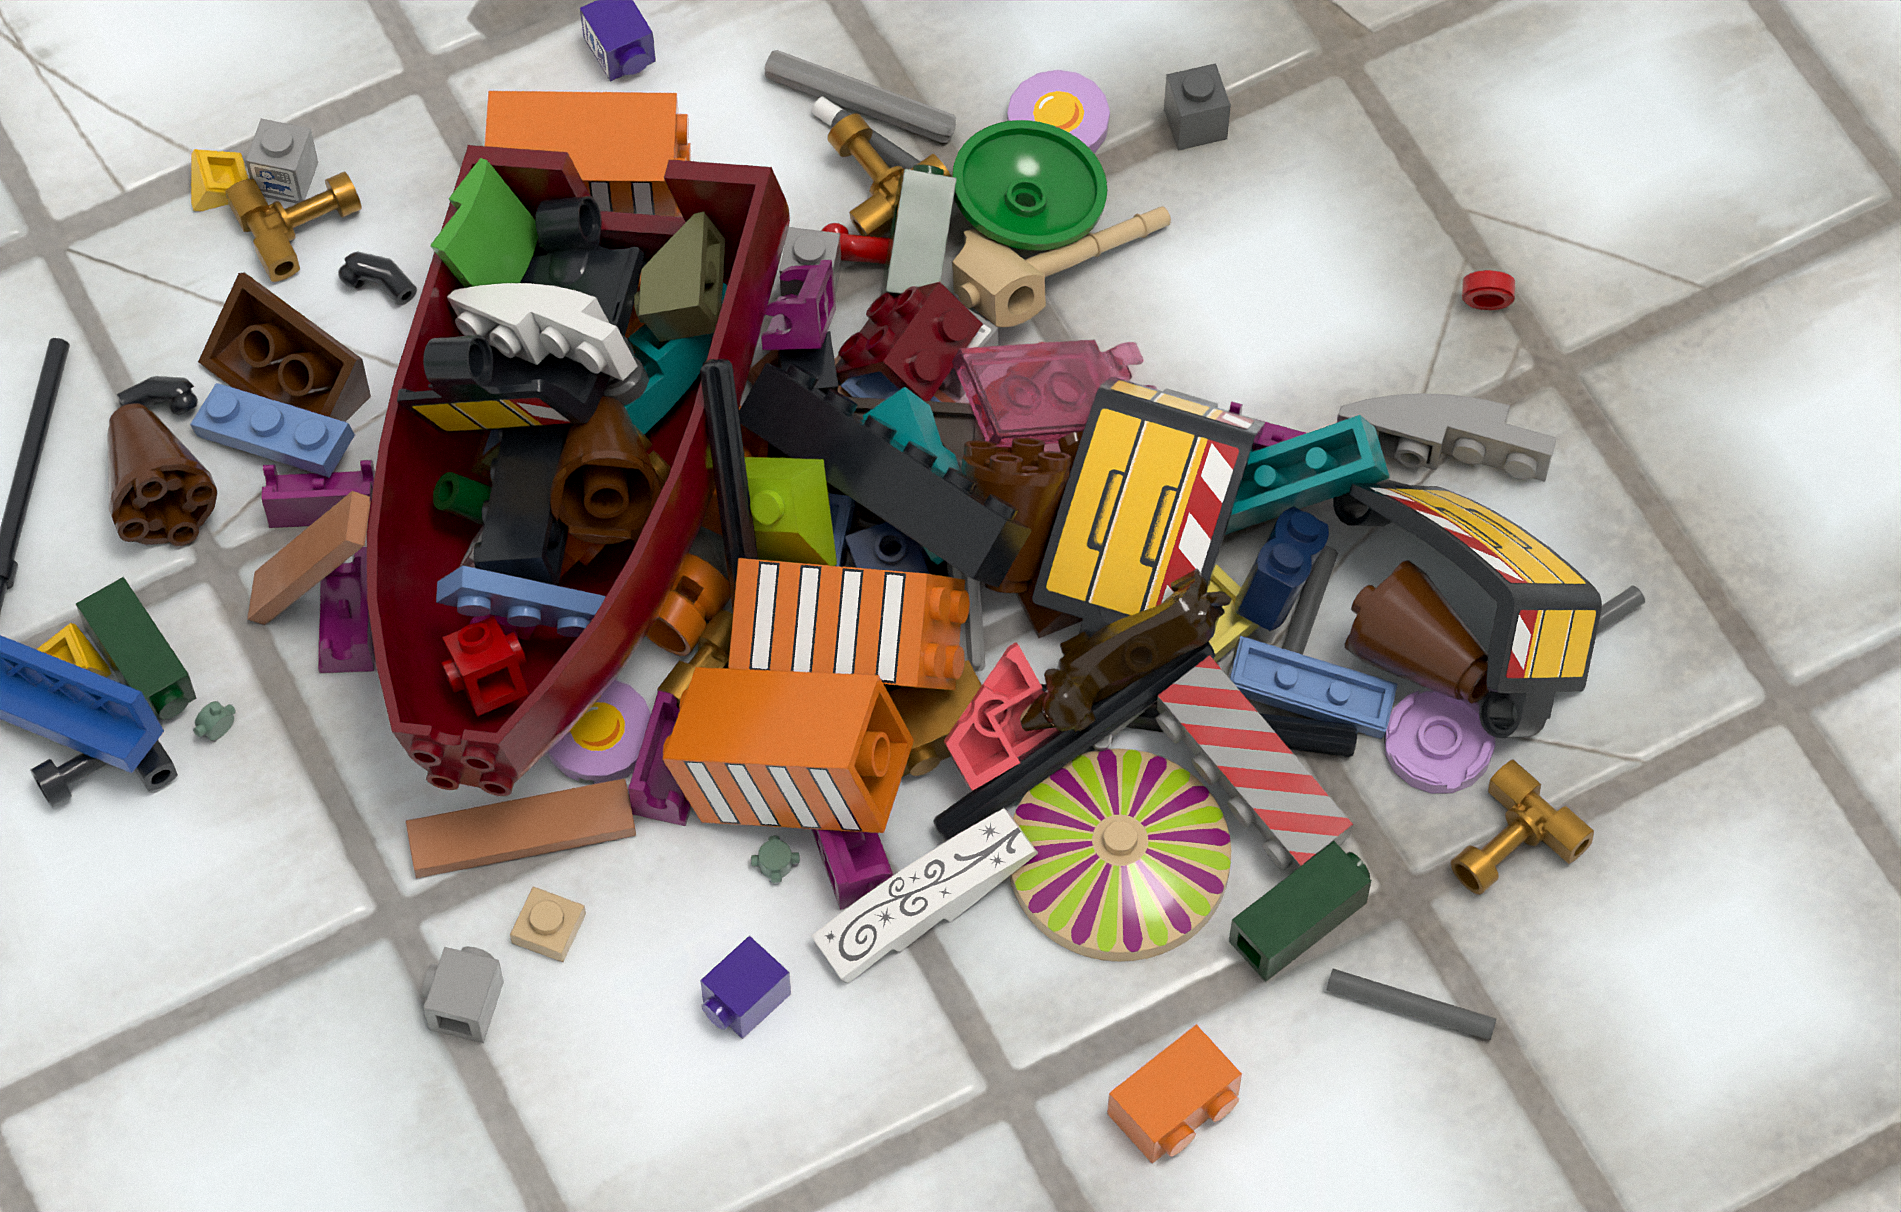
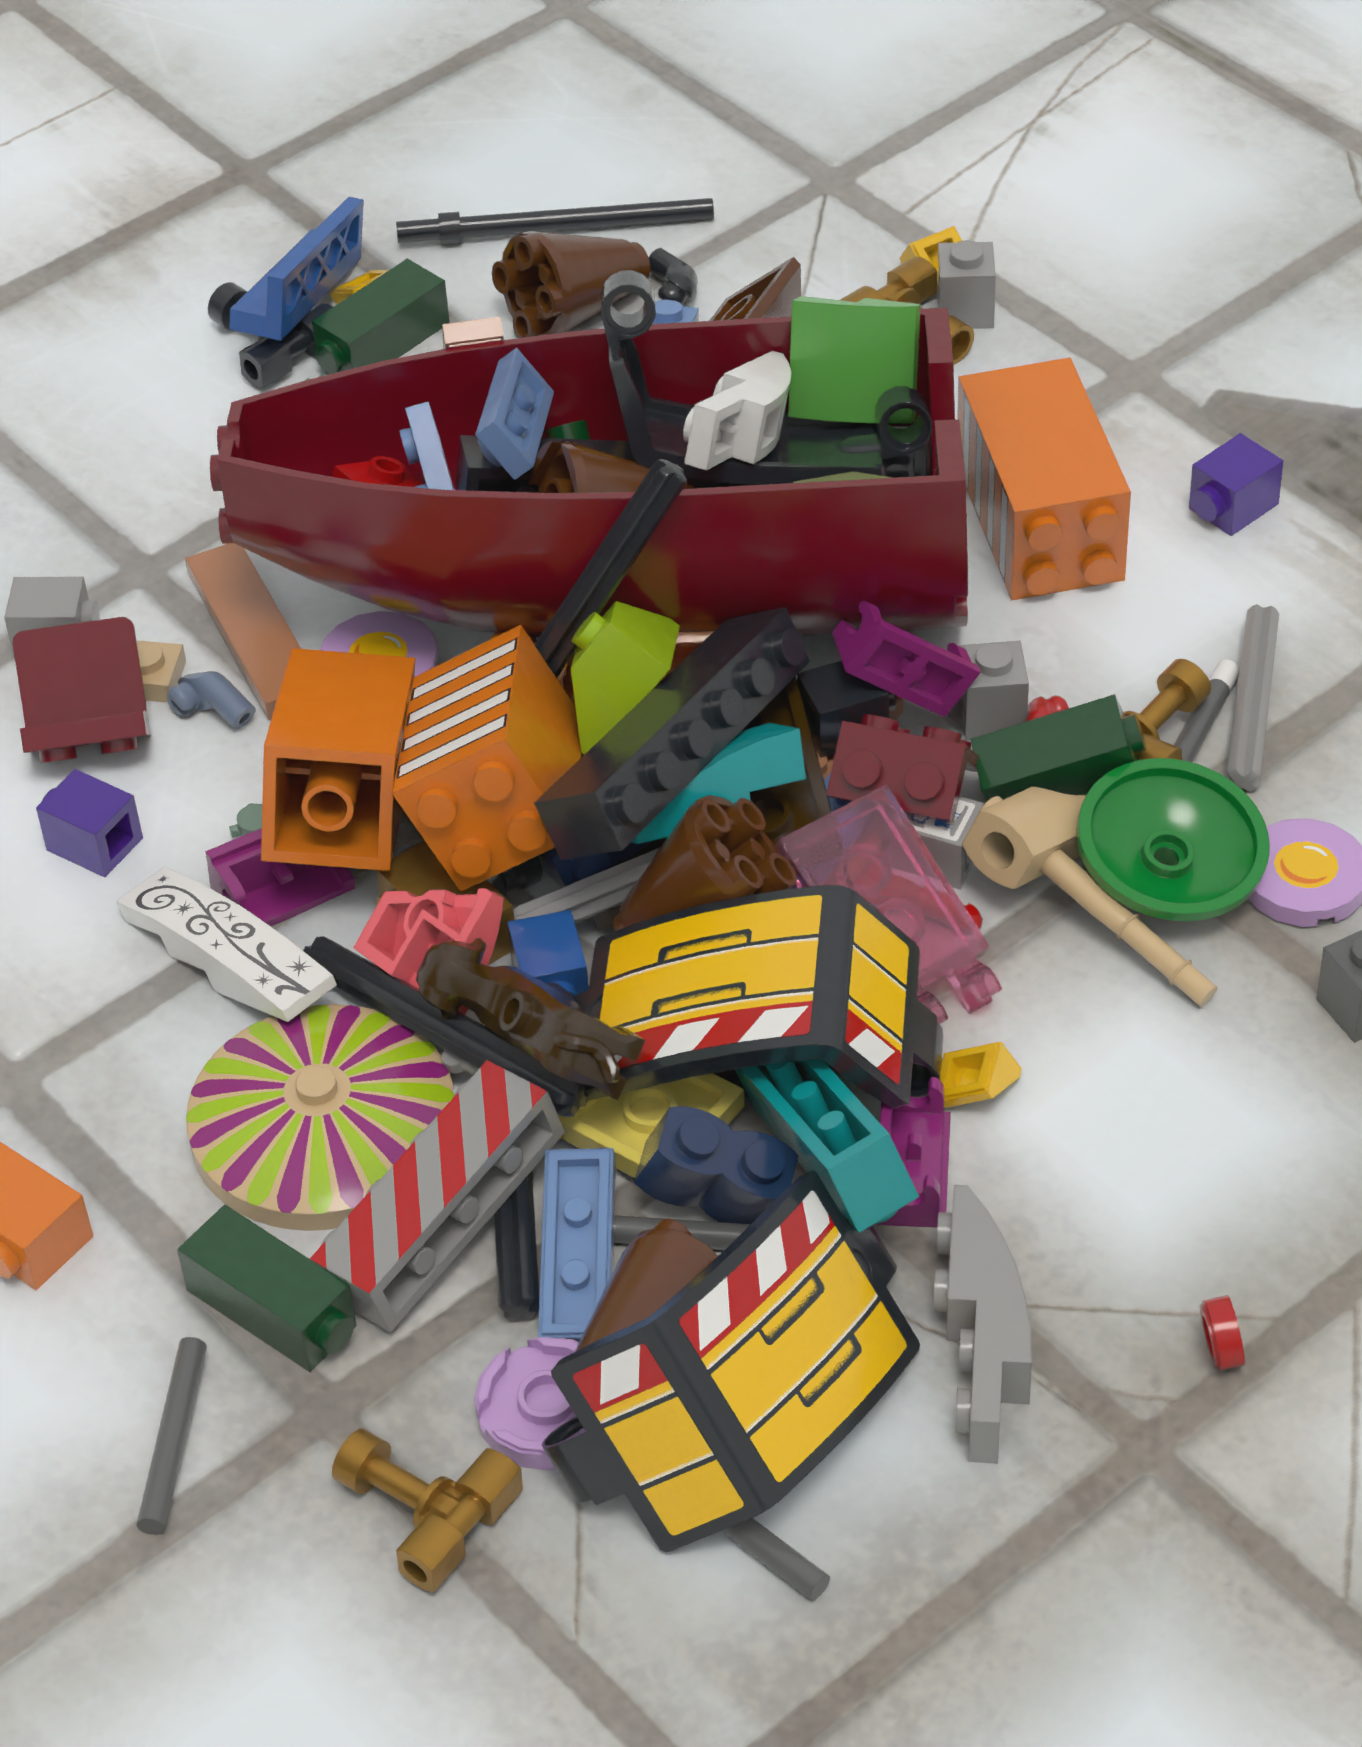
camera: 80 degrees right, 15 degrees down
(482, 508) = (514, 415): none -> medium blue plate
(597, 972) = (80, 688): none -> dark red bracket
(603, 867) = (207, 692): none -> sand blue arm
(1032, 636) = (549, 950): none -> blue brick
(1208, 382) = (977, 1073): none -> yellow slope

